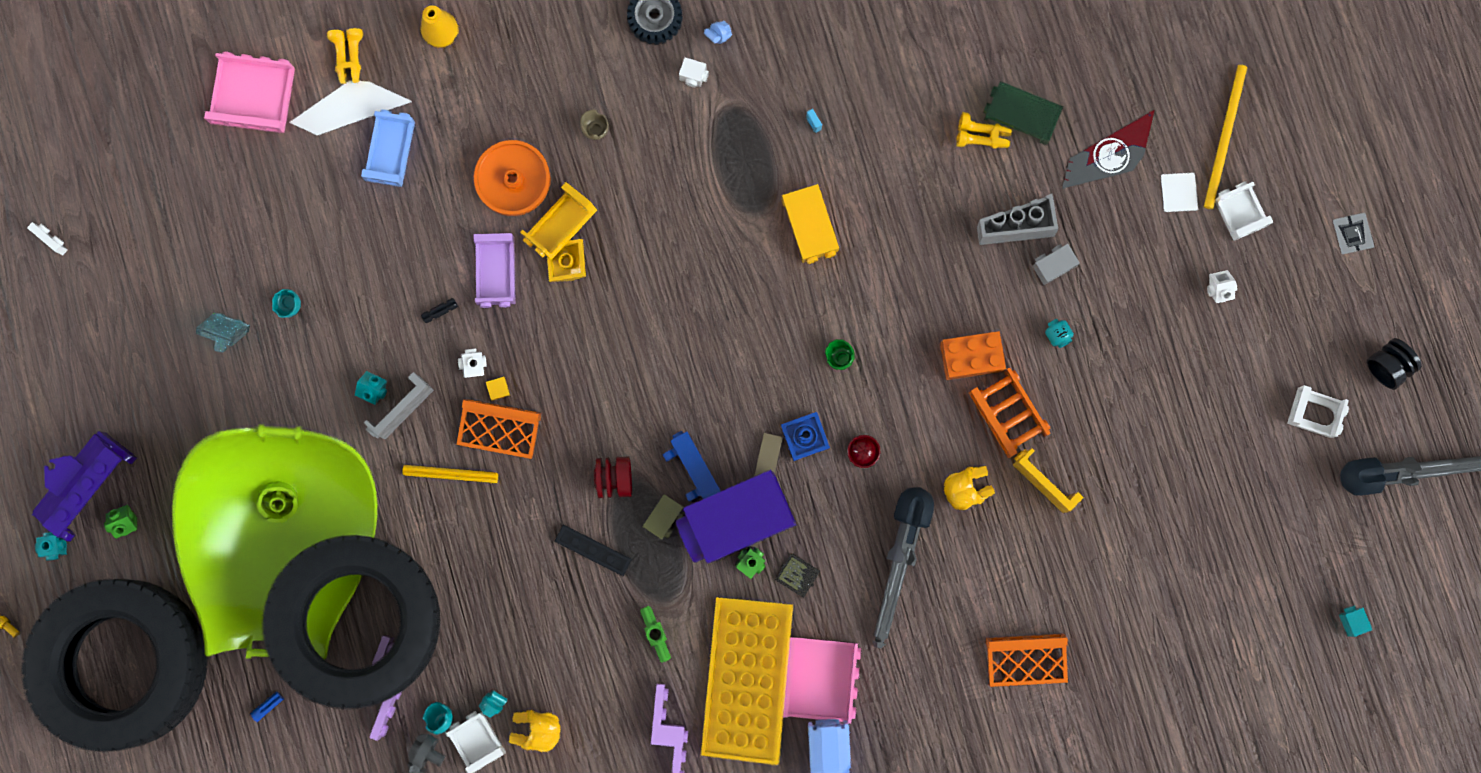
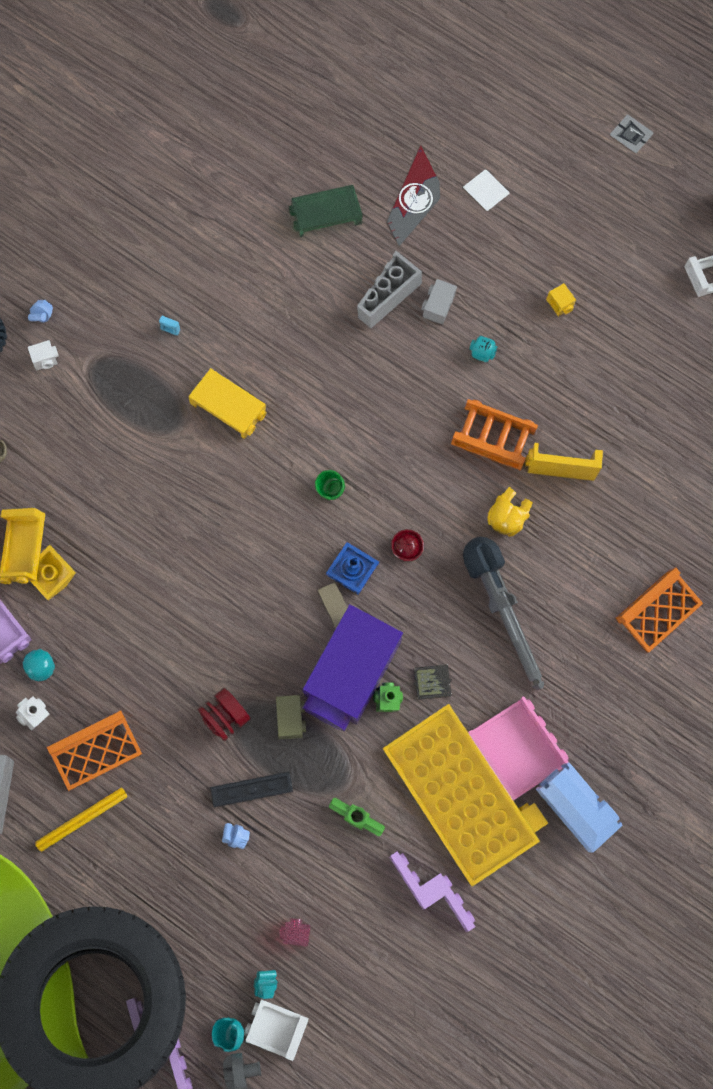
camera: 45 degrees left, 10 degrees down
(497, 388) = (69, 718): yellow tile -> none
(505, 328) = (38, 665): none -> teal hair
(542, 684) = (295, 933): none -> clear pink brick
(543, 734) = (328, 970): yellow hair -> none
(553, 576) = (235, 836): none -> light blue piece
(694, 465) = (281, 656): blue brick -> none
(789, 740) = (533, 816): none -> yellow brick
(972, 355) = (432, 411): orange brick -> none
(993, 141) = (317, 238): yellow piece -> none
(1162, 339) = (561, 300): none -> yellow brick
(1221, 286) = (573, 231): white brick -> none
(1225, 137) = (487, 129): yellow piece -> none
(1241, 211) = (541, 171): white panel -> none

